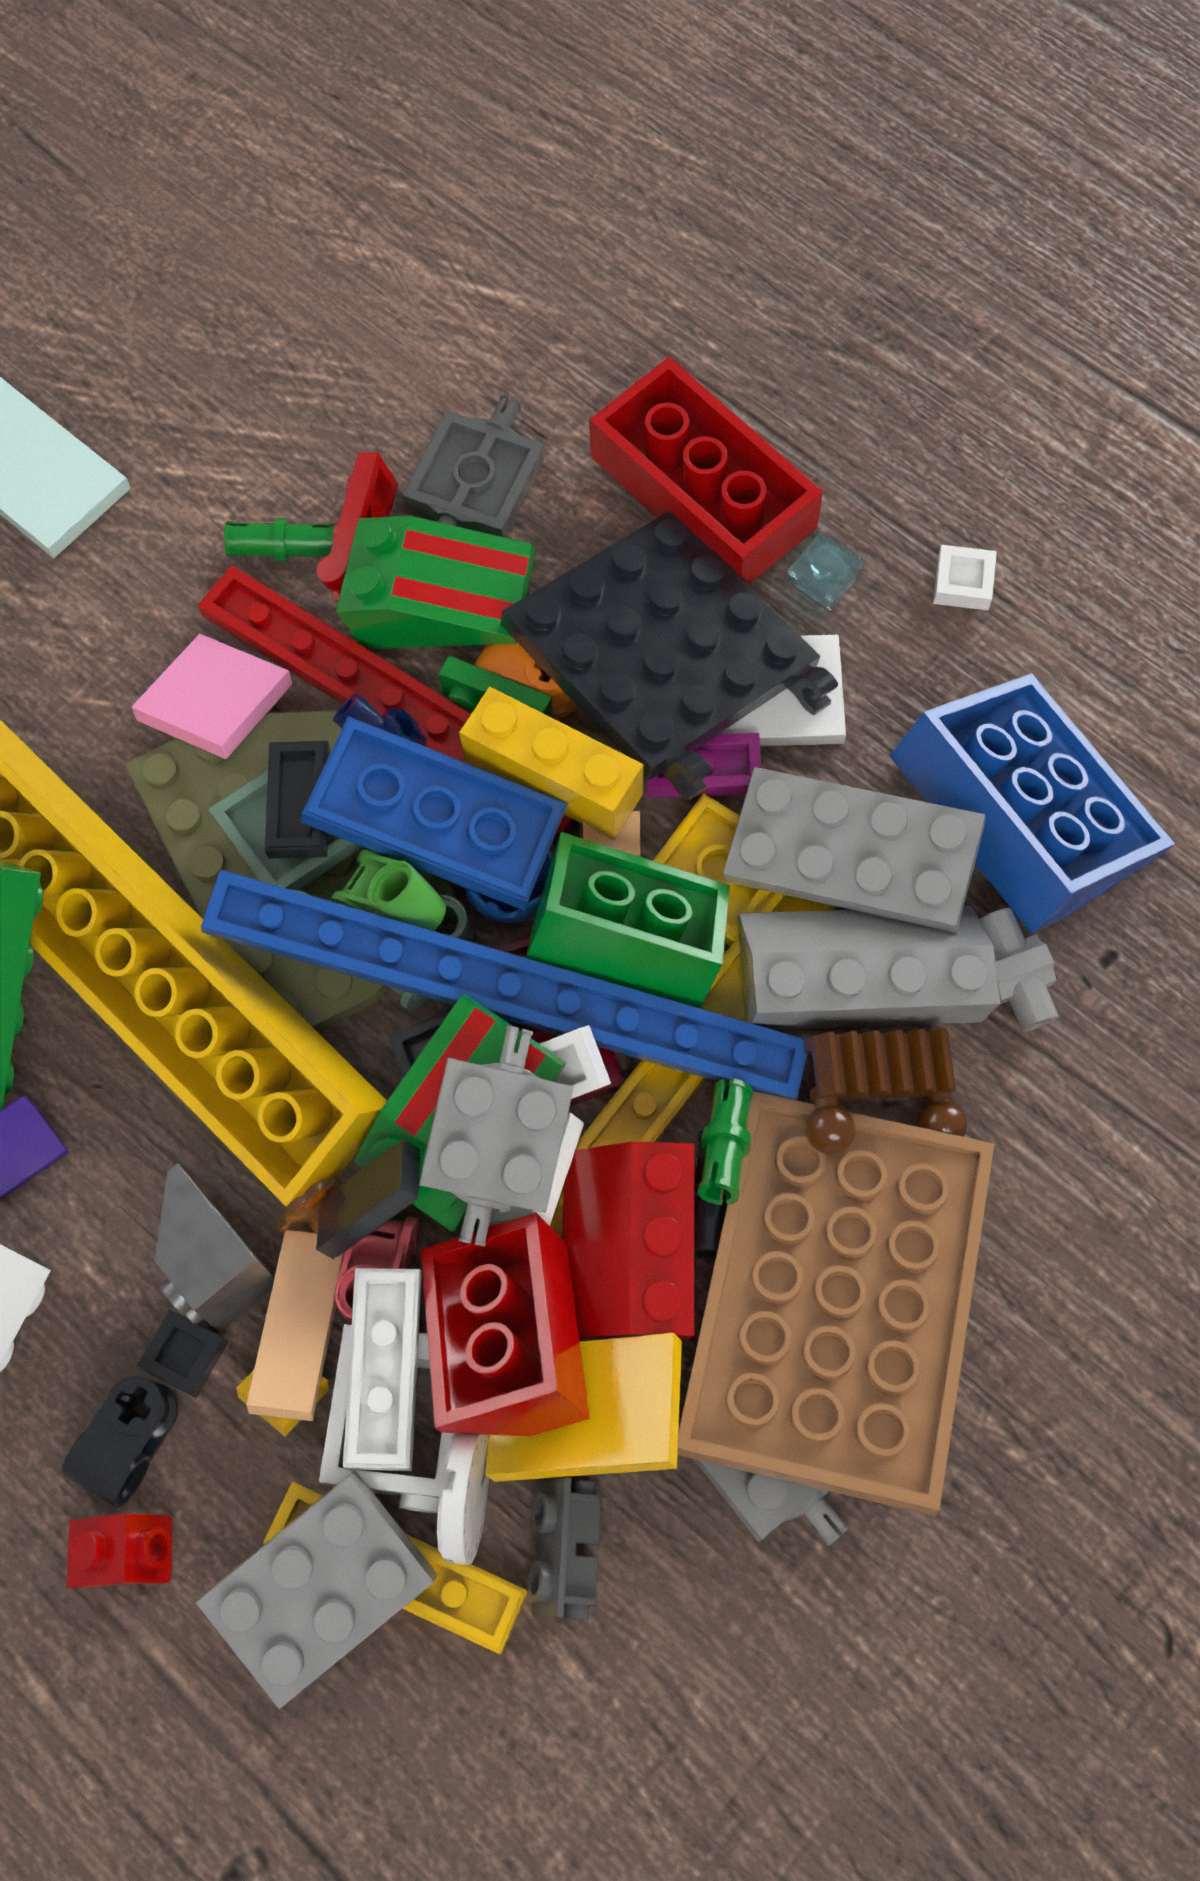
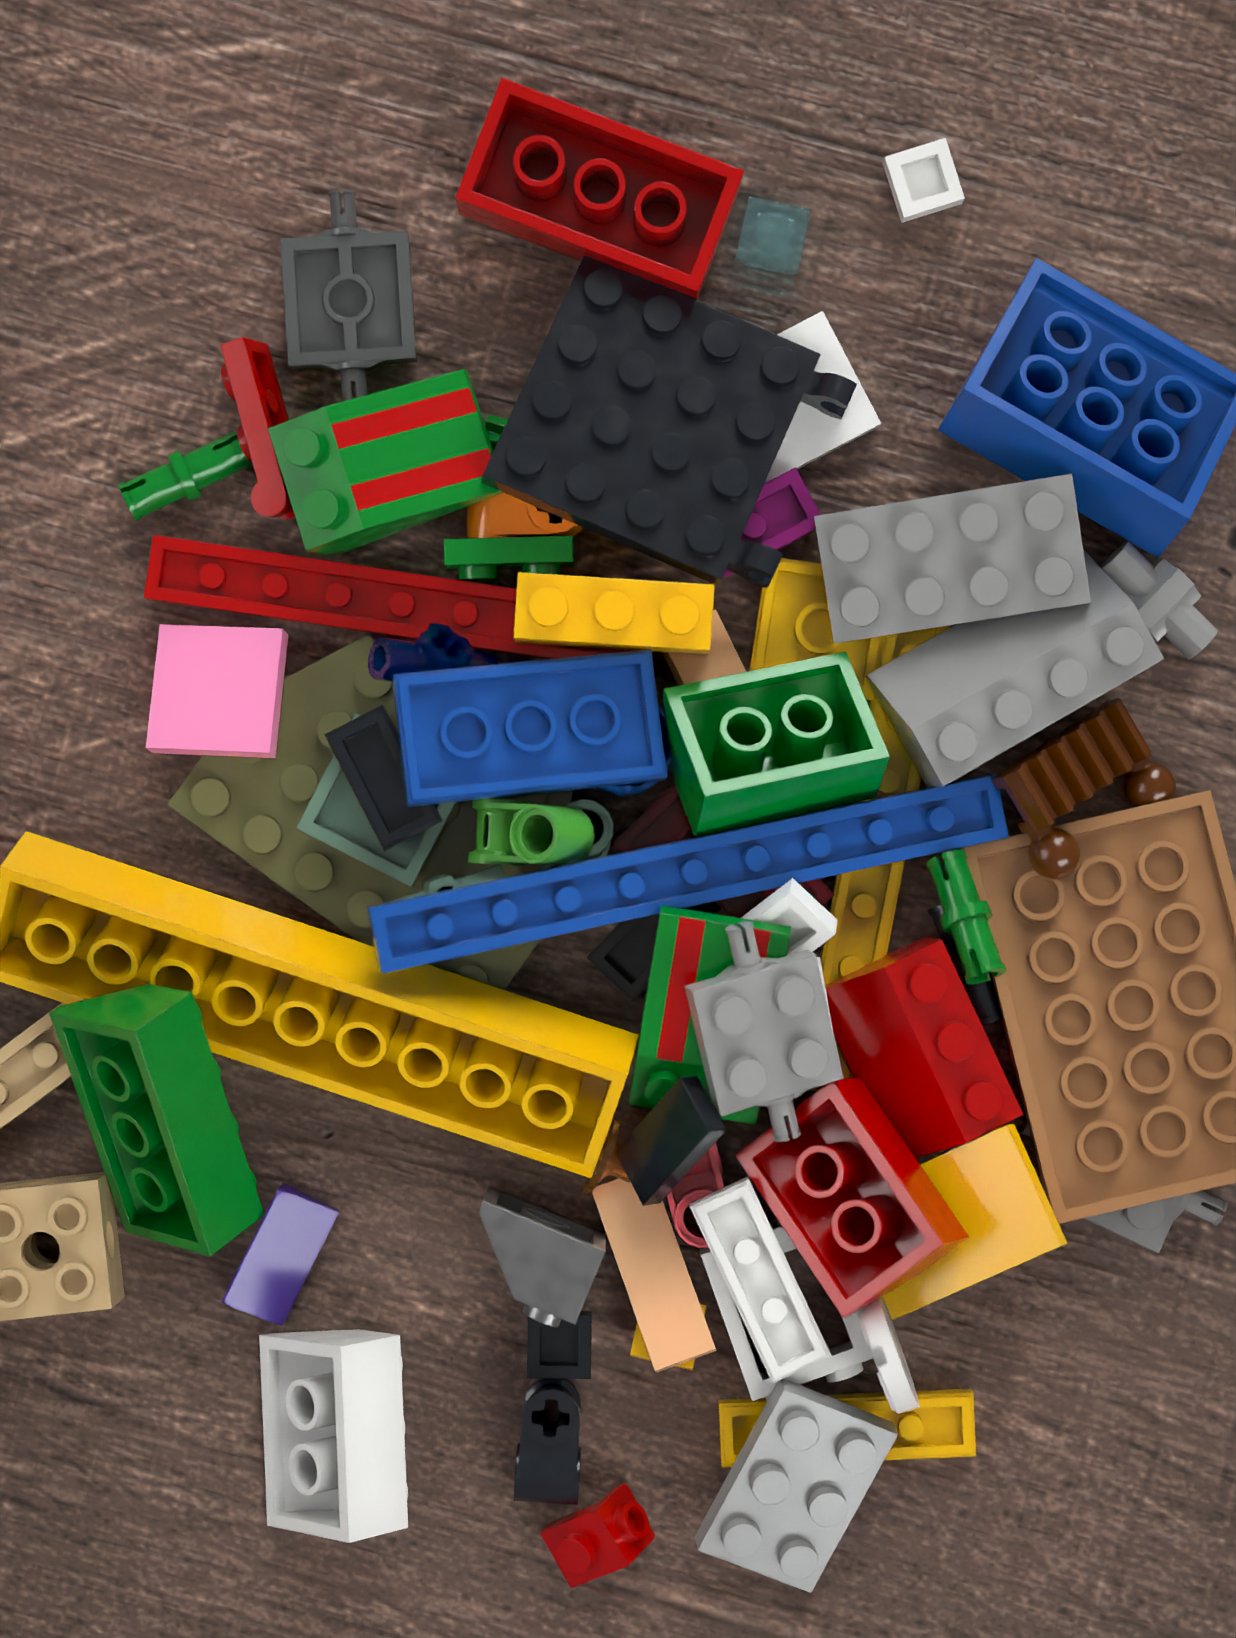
camera: 25 degrees left, 20 degrees up
(558, 1580) = (996, 1370): dark grey hinge -> none

